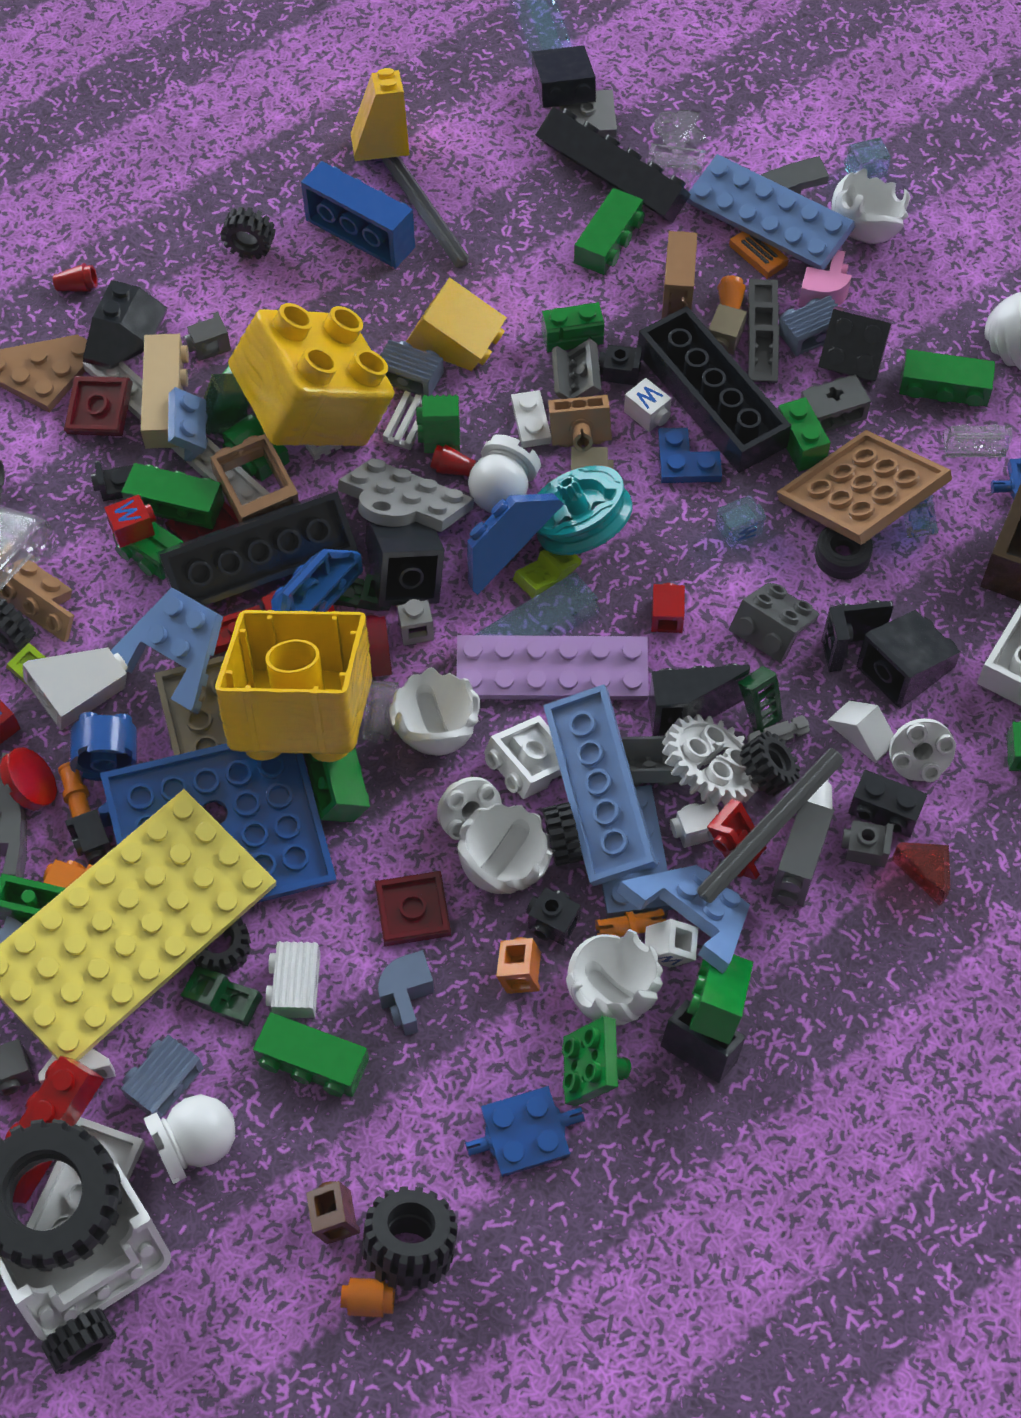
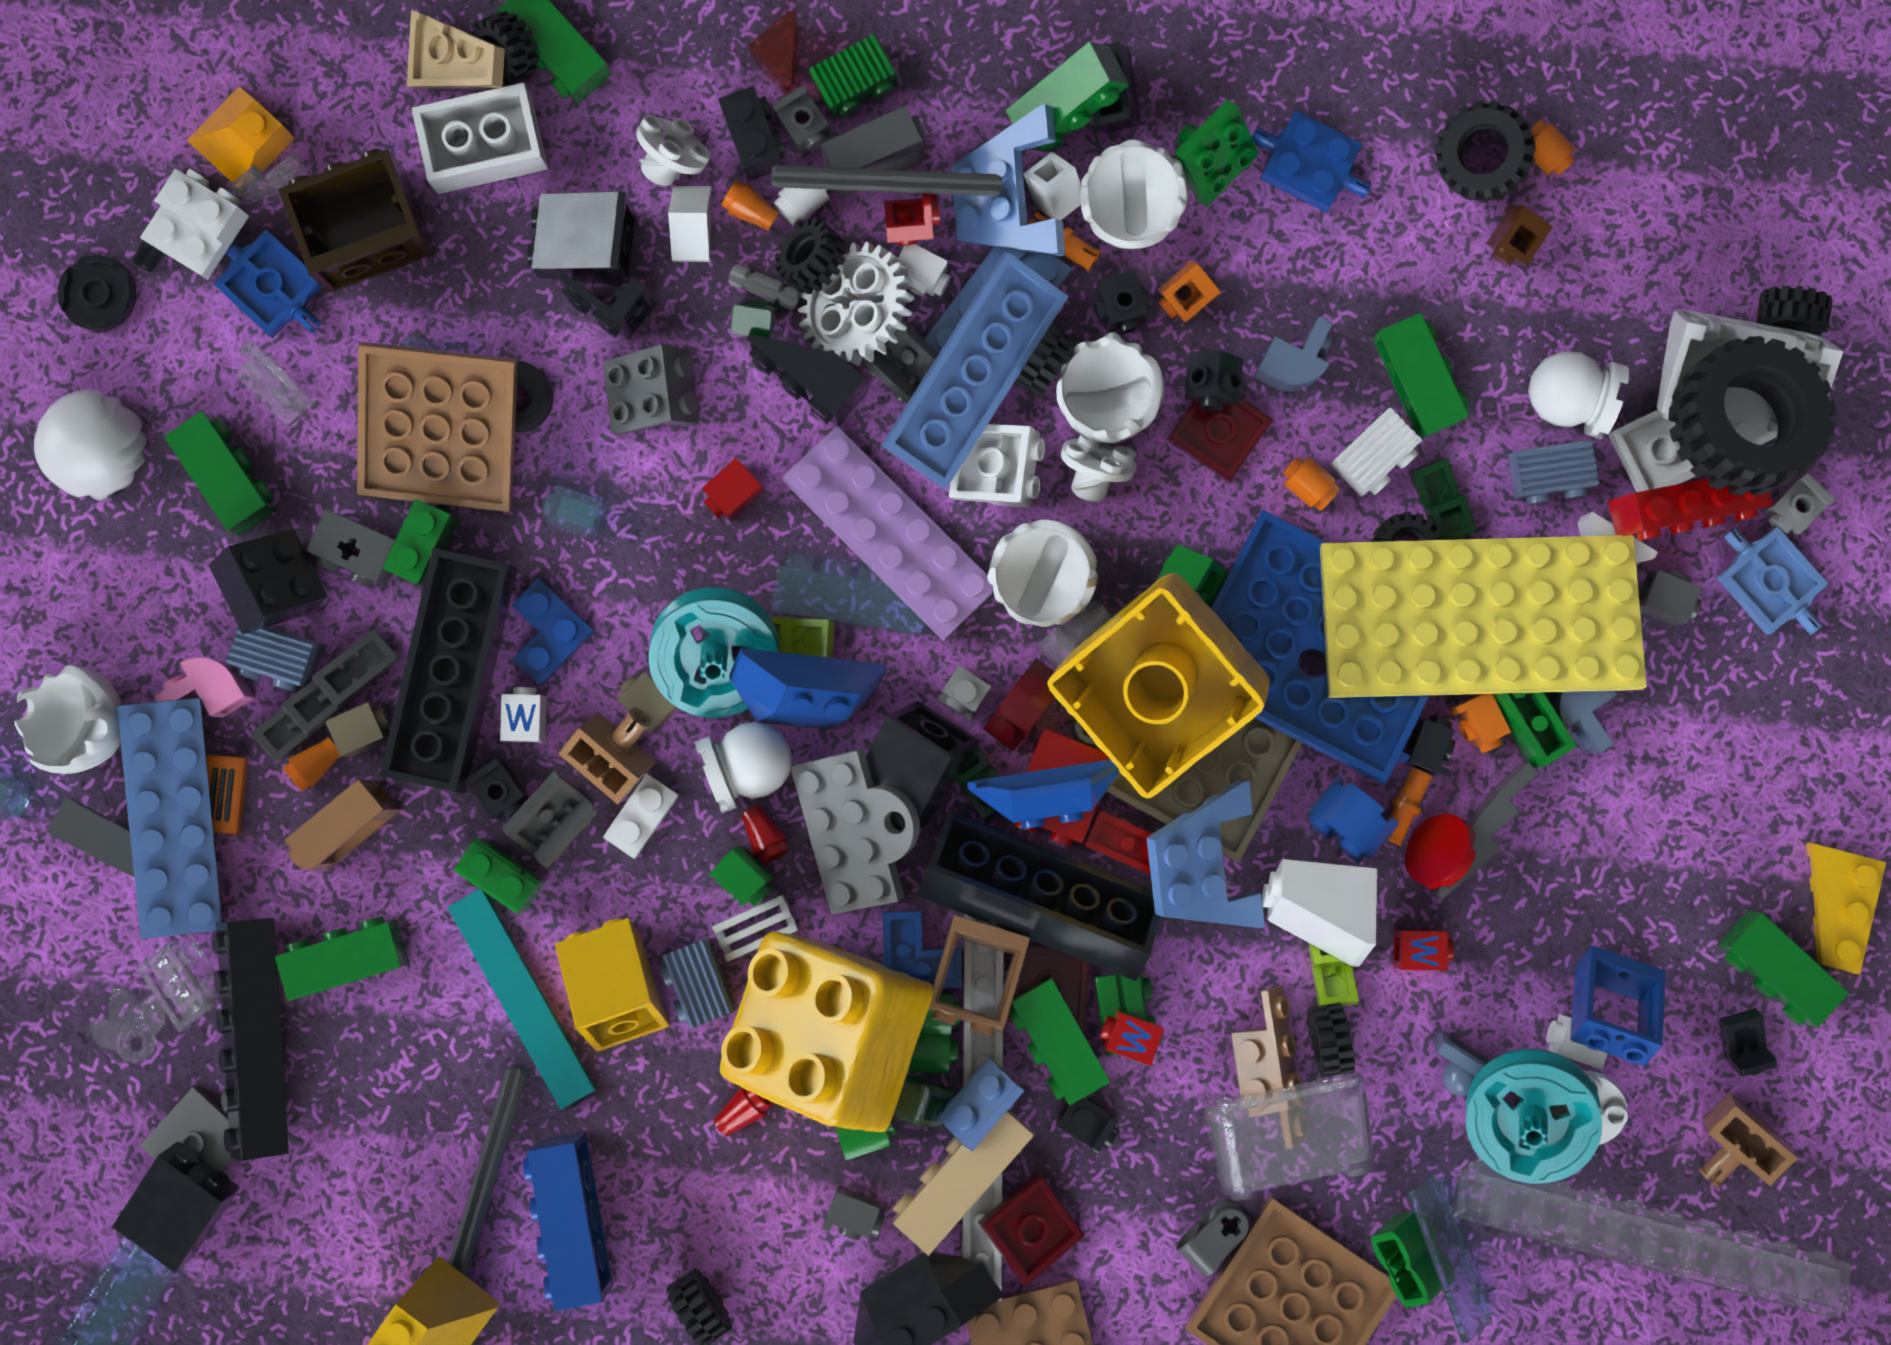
camera: 140 degrees left, 25 degrees up
(304, 471) = (906, 954): none -> blue plate
(321, 924) = (1310, 482): none -> orange brick
(445, 916) = (1214, 379): none -> black brick
(494, 290) = (522, 998): none -> teal tile
(850, 768) = (748, 205): none -> orange cone
(868, 898) = (854, 76): none -> green brick

